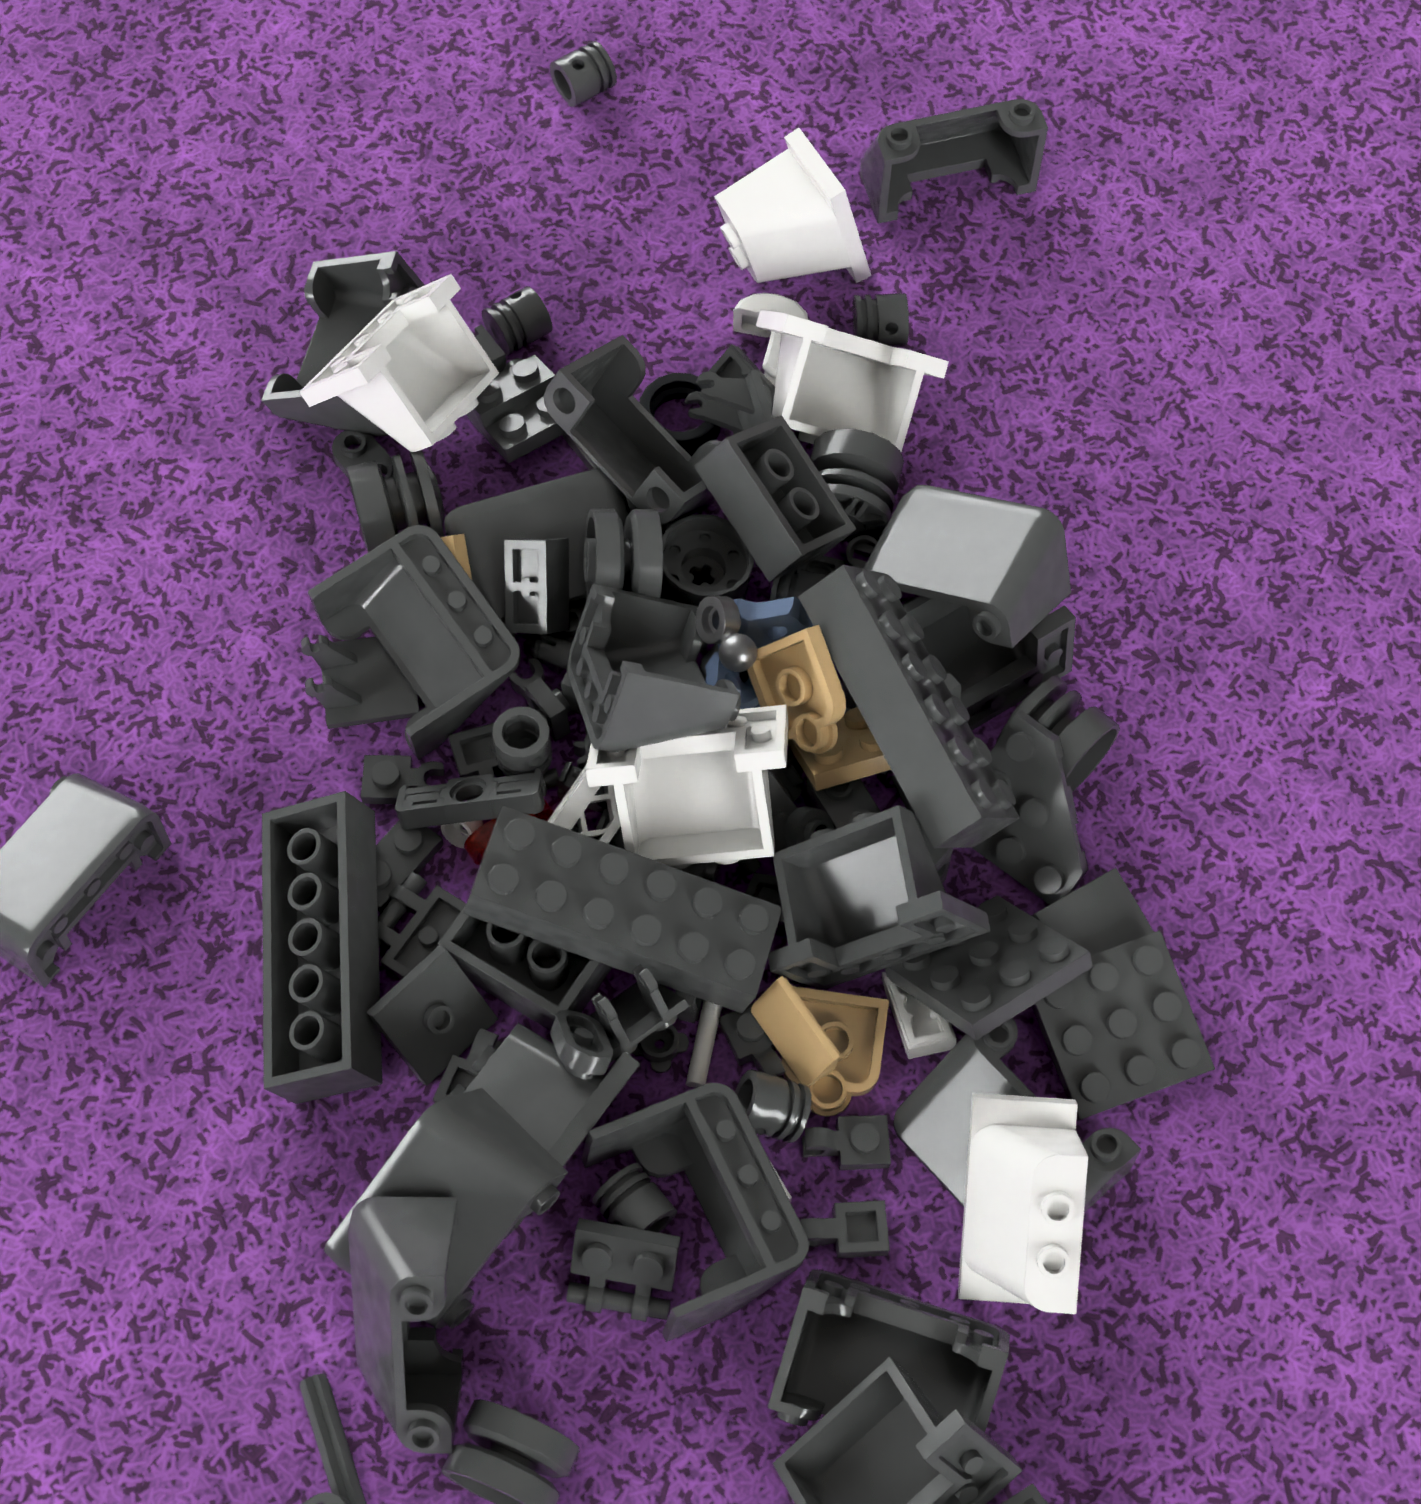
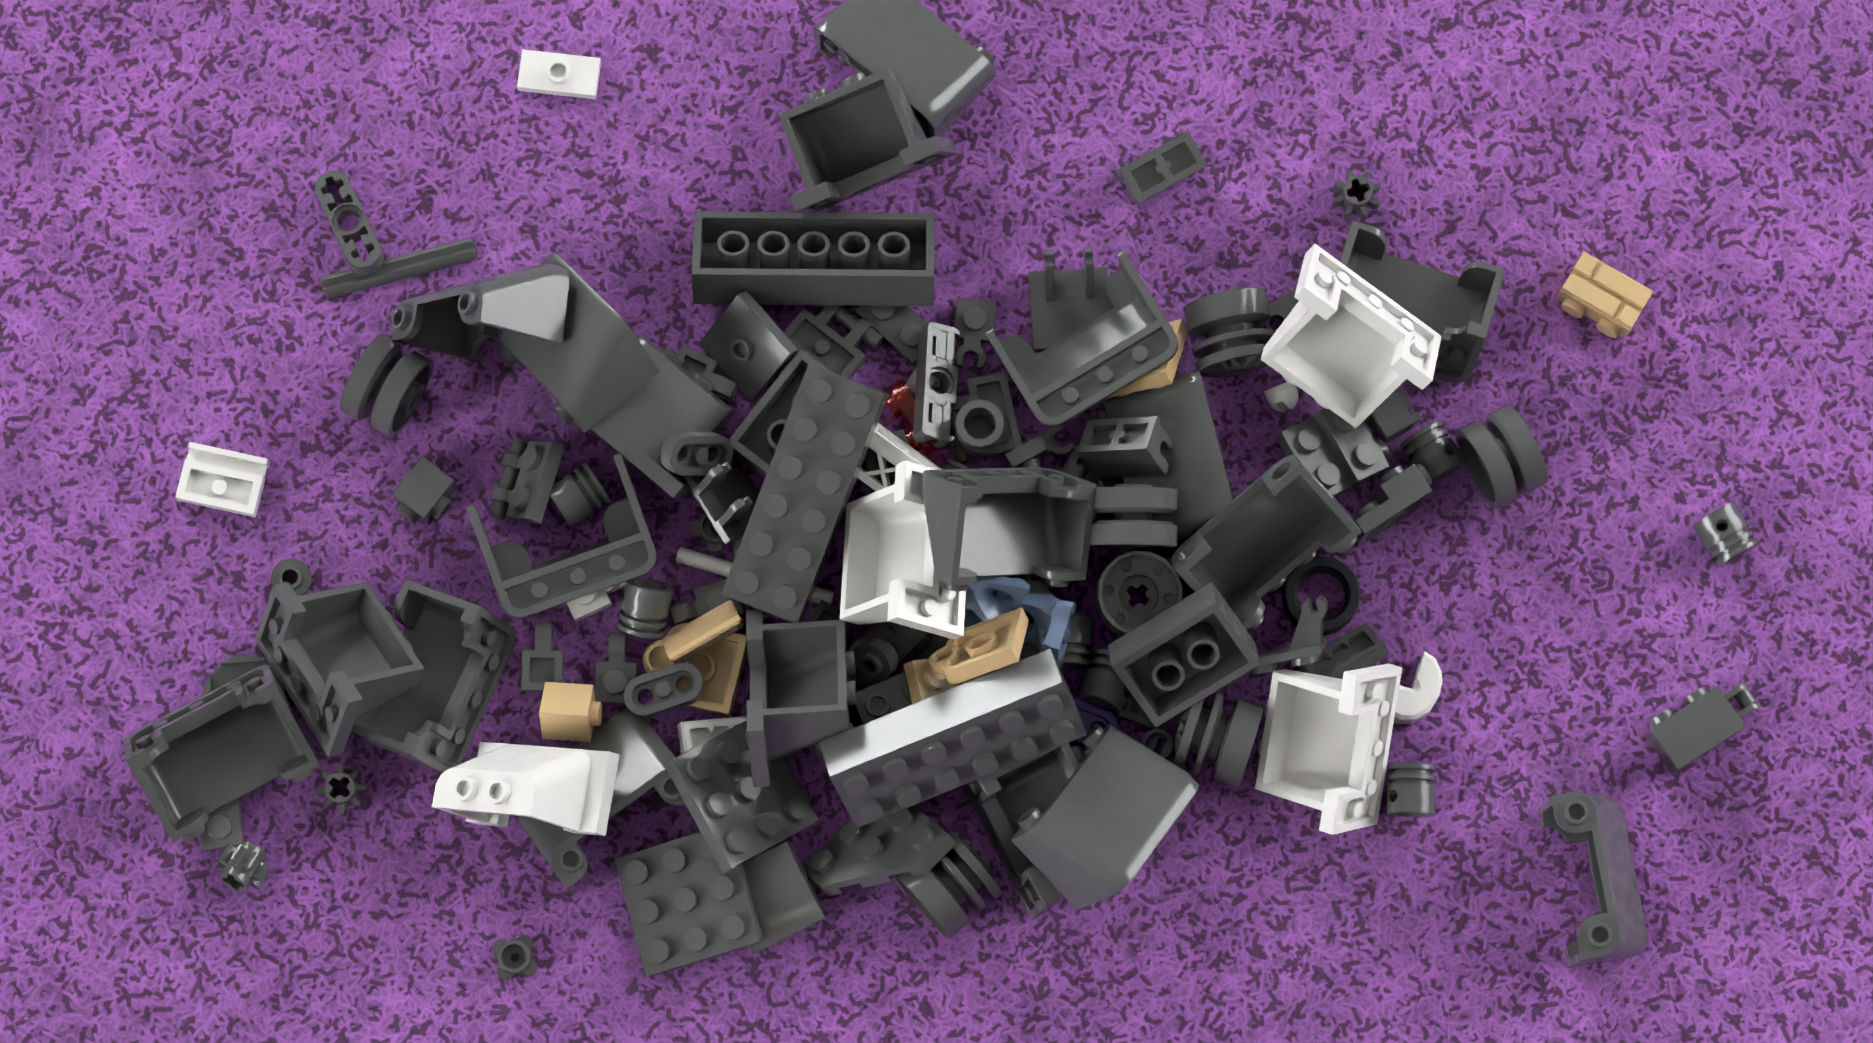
camera: 95 degrees right, 15 degrees up
(75, 1294) = (559, 74): none -> white plate
(171, 890) = (857, 140): none -> dark grey windscreen
(200, 595) = (1161, 168): none -> dark grey hinge
(230, 407) = (1351, 204): none -> dark grey gear
(337, 185) = (1603, 296): none -> tan brick
(458, 467) = (1282, 396): none -> white hinge
(518, 247) = (1502, 456): none -> dark grey wheel
(567, 330) = (1396, 498): none -> dark grey plate
(647, 1402) = (424, 493): none -> dark grey brick
(719, 623) = (1047, 590): flat silver plate -> none
(781, 87) = (1698, 726): none -> dark grey brick
(791, 218) = (1503, 712): white windscreen -> none
(873, 1072) = (665, 690): none -> dark grey plate
(911, 1185) = (569, 711): none -> tan brick
(1063, 1467) = (341, 801): none -> dark grey gear
(1223, 1213) = (504, 952): none -> dark grey plate

